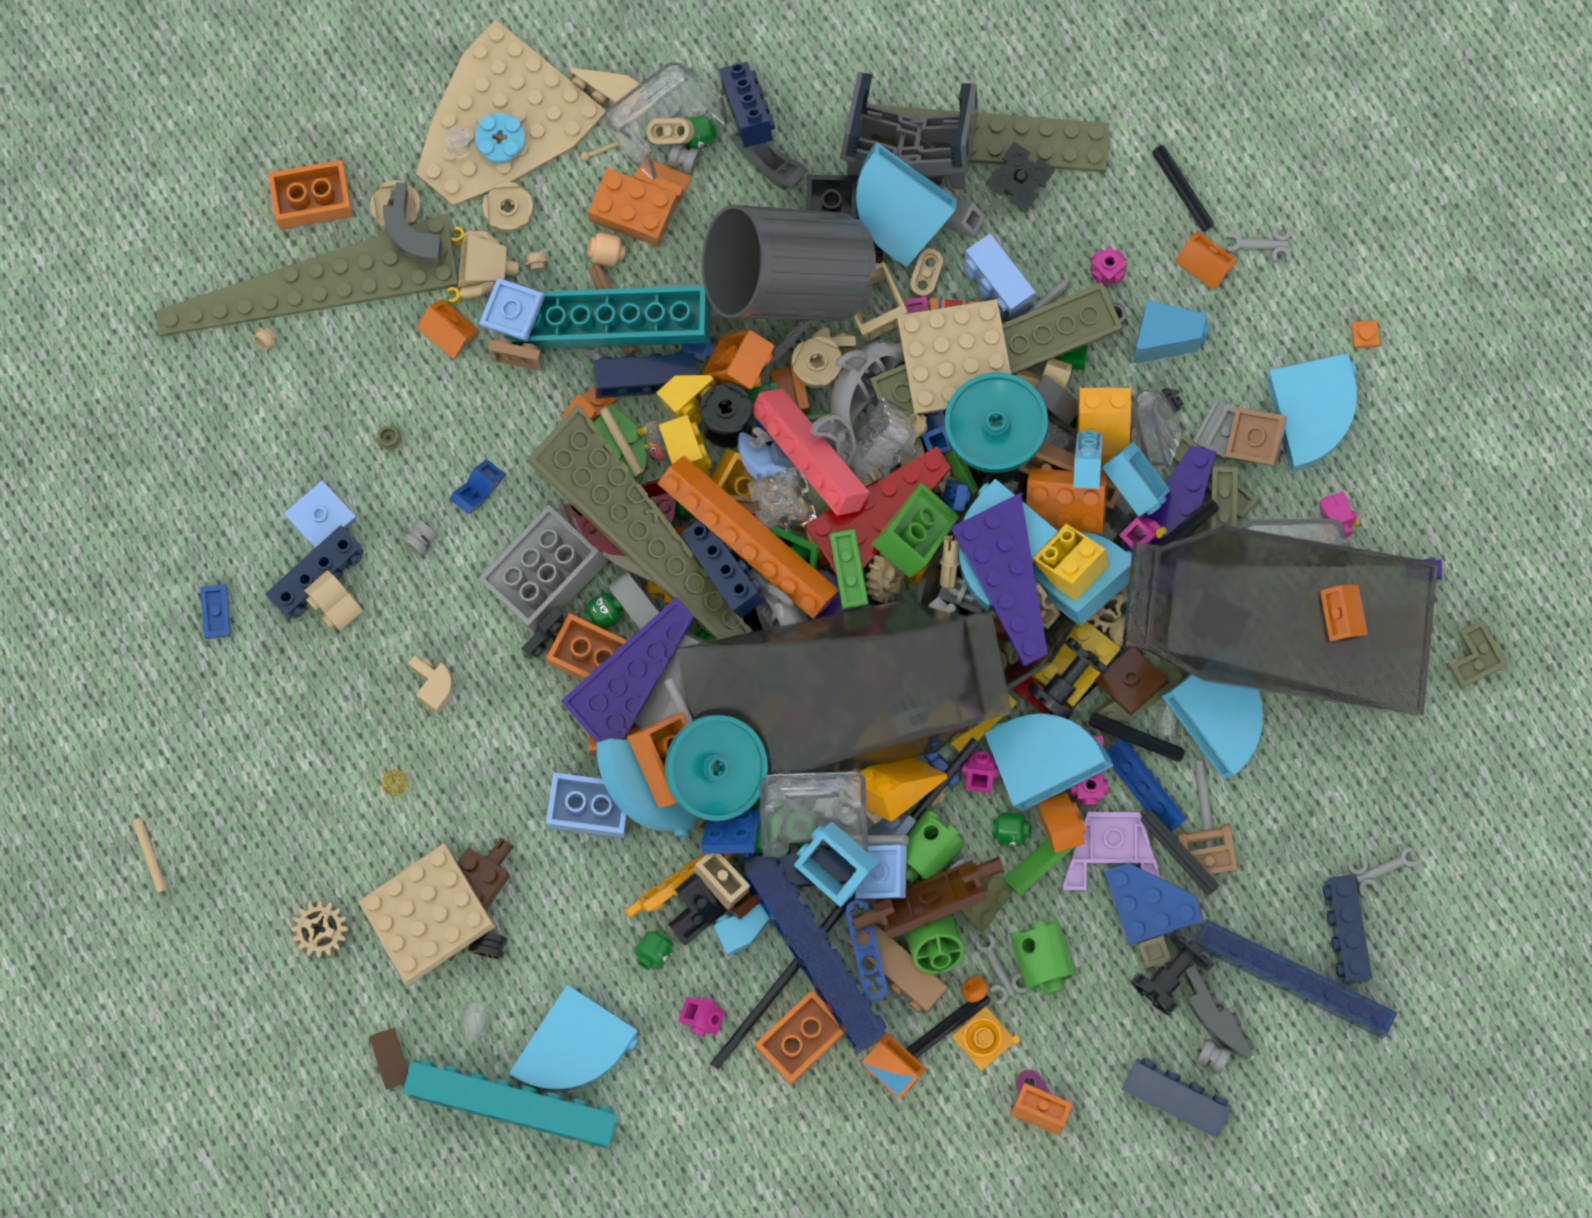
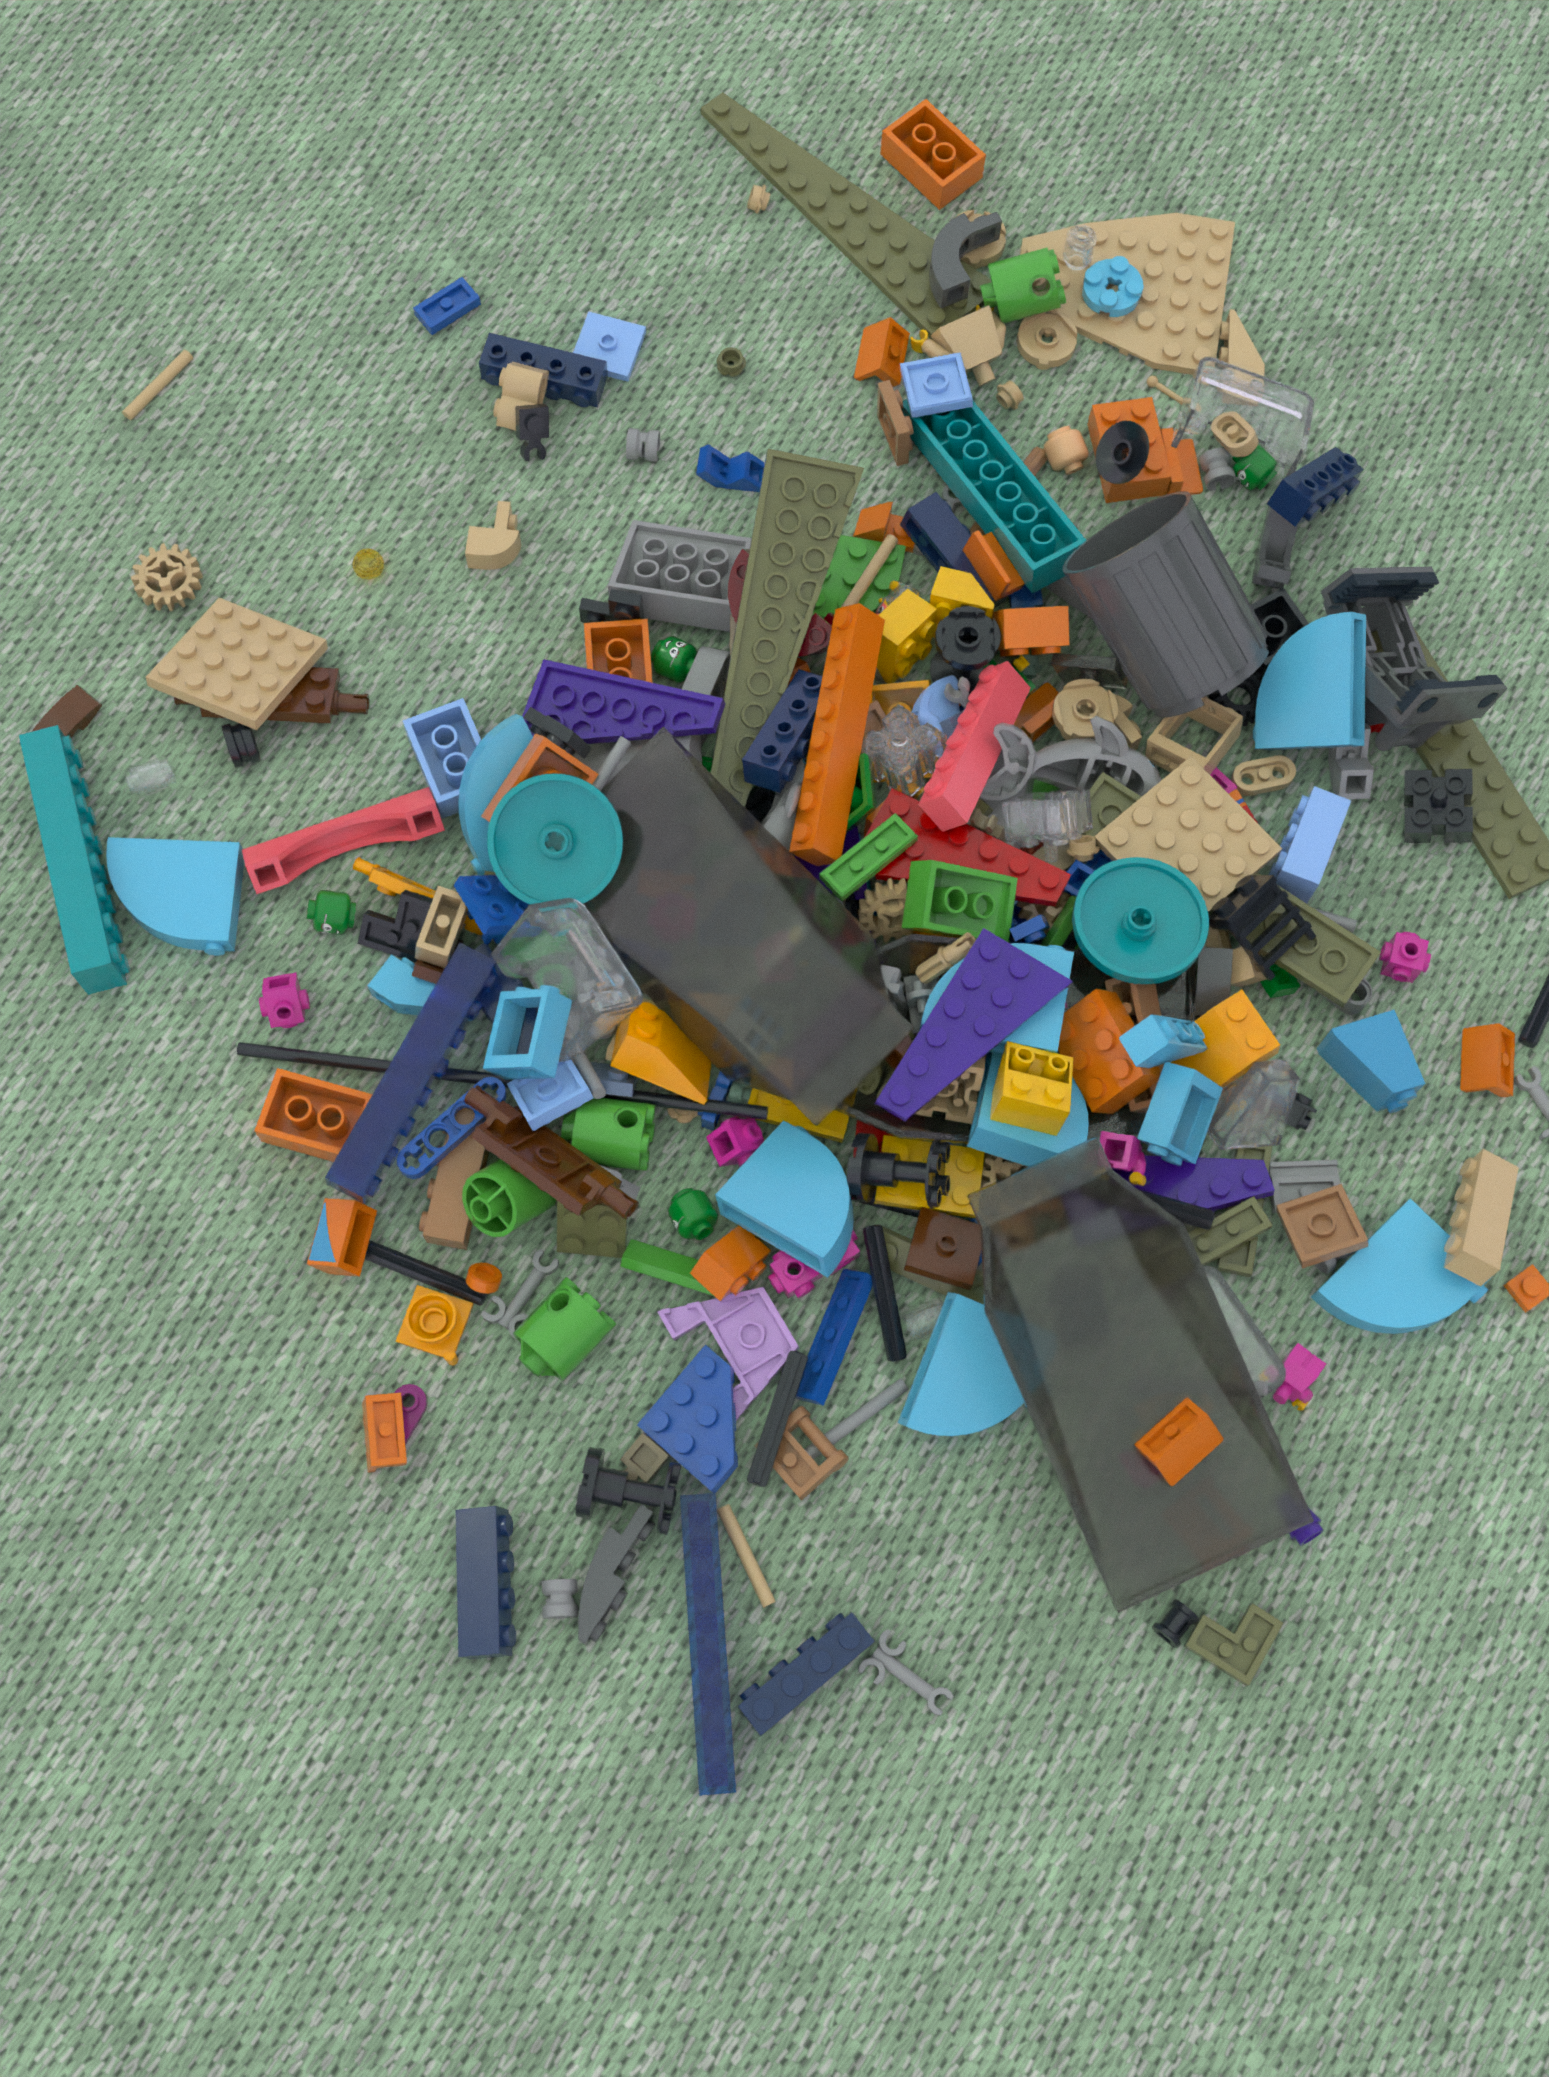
camera: 55 degrees right, 5 degrees down
(361, 607) = (531, 426): none -> black plate
(466, 199) = (1013, 289): none -> bright green cylinder
(594, 961) = (288, 856): none -> coral arch
(640, 720) = (557, 733): none -> black plate
(642, 226) = (1114, 446): none -> black dish
(673, 356) = (992, 565): none -> orange panel
(1026, 346) = (1247, 907): none -> black plate
(1249, 924) = (746, 1556): none -> tan bar
(1308, 335) = (1481, 1217): none -> tan brick
(1445, 685) = (1175, 1623): none -> black bush

